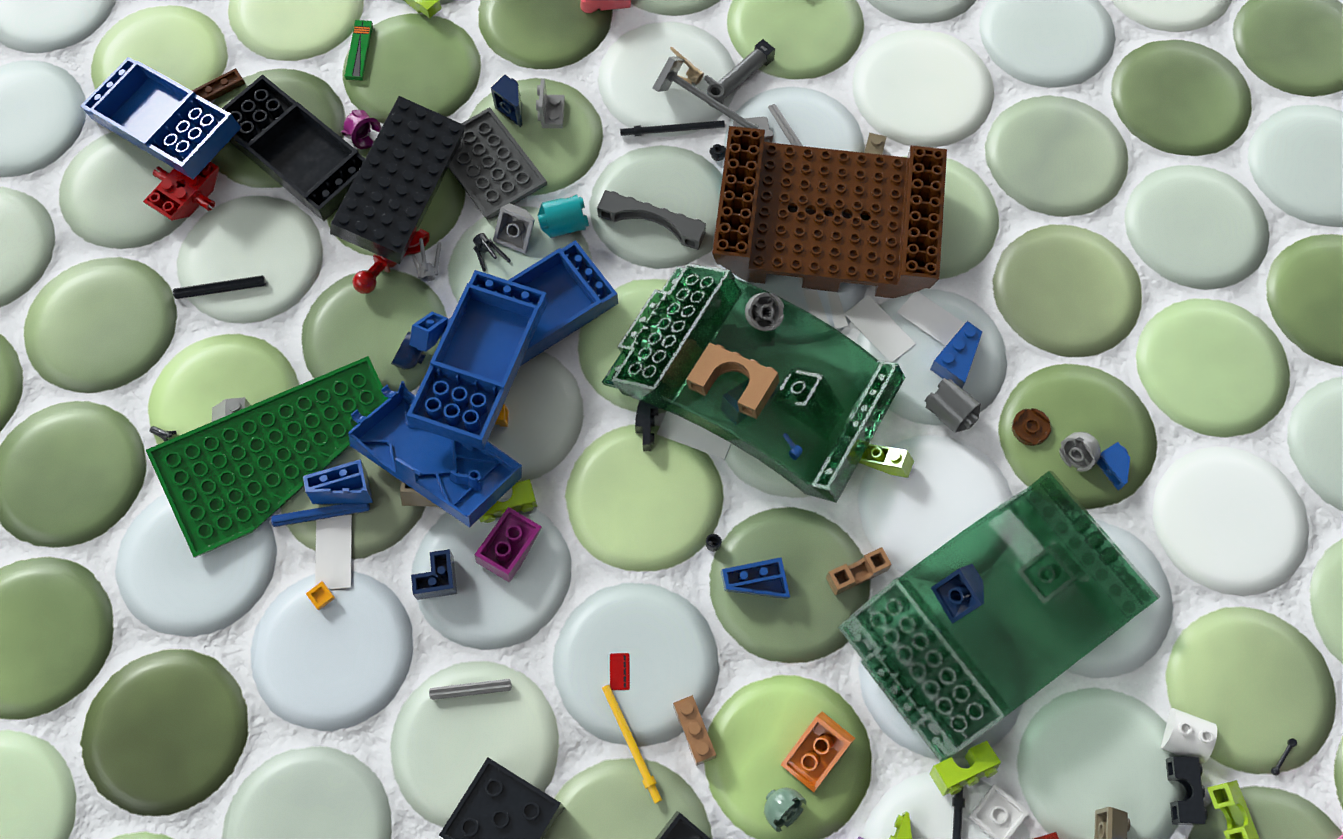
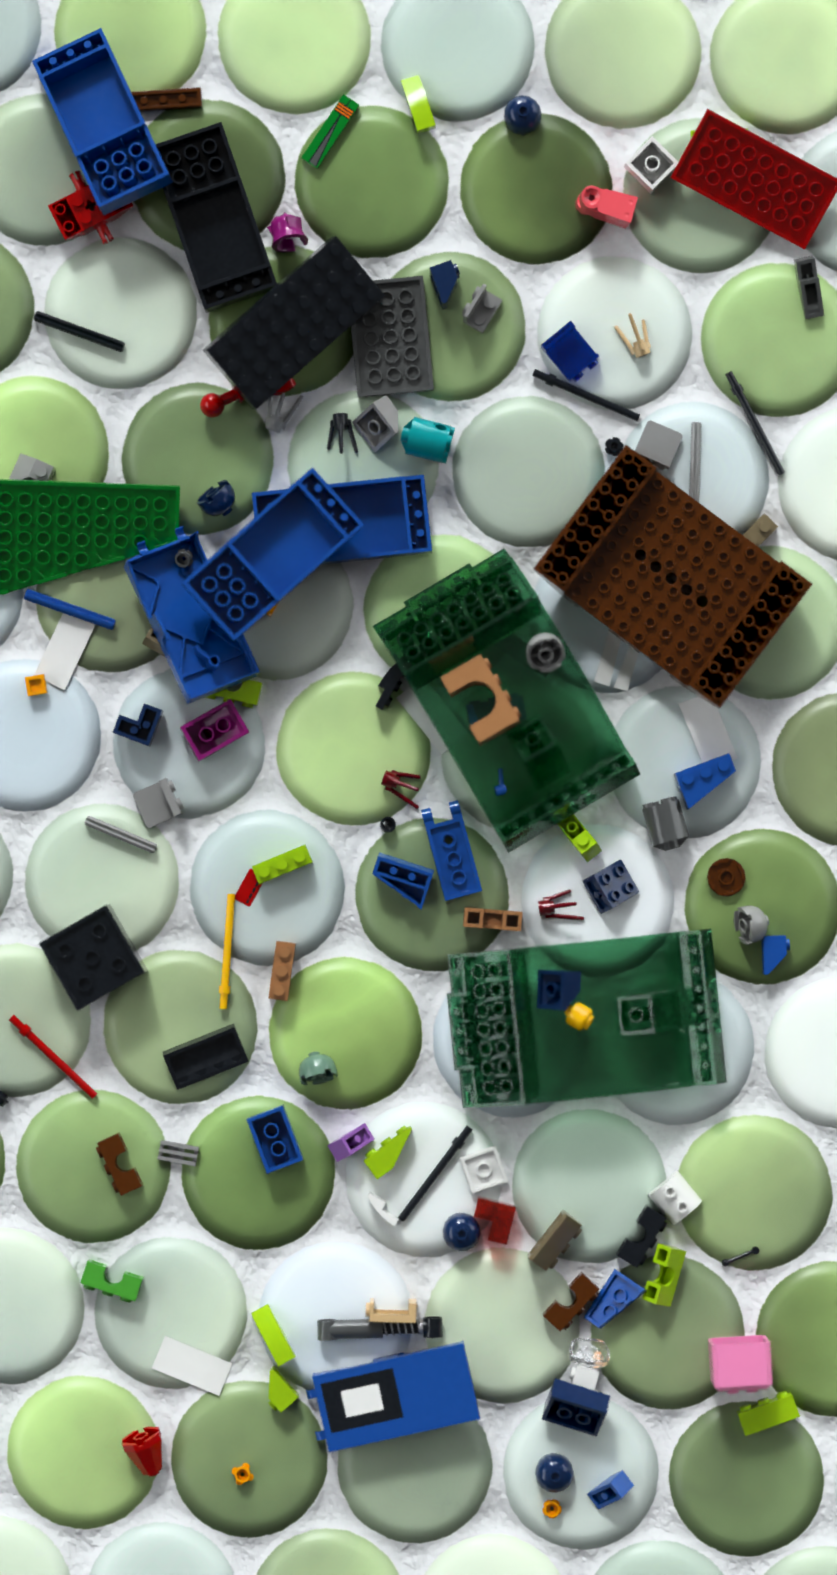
camera: 30 degrees right, 20 degrees up
(339, 485) = (98, 596): blue wedge -> none
(398, 409) = (179, 558): none -> dark grey plate
(427, 331) = (243, 496): blue slope -> none
(491, 639) = (158, 803): none -> light grey bracket
(618, 207) = (483, 454): dark grey arch -> none
(638, 630) = (282, 864): none -> lime brick
(639, 104) = (570, 352): none -> clear blue panel
(669, 74) = (612, 345): dark grey tile -> none
(693, 502) = (391, 780): none -> dark red plant
(762, 55) = (685, 372): dark grey piece -> none
(789, 68) = (737, 390): none -> black bar
(792, 540) = (454, 860): none -> blue hinge
(817, 751) = (371, 1042): orange slope -> none
(879, 328) = (653, 710): white sticker -> none
(898, 535) = (547, 907): none -> dark red plant
(940, 488) = (610, 886): none -> dark blue bracket
(951, 777) = (461, 1122): lime arch -> none
(997, 606) = (579, 1016): none -> yellow head

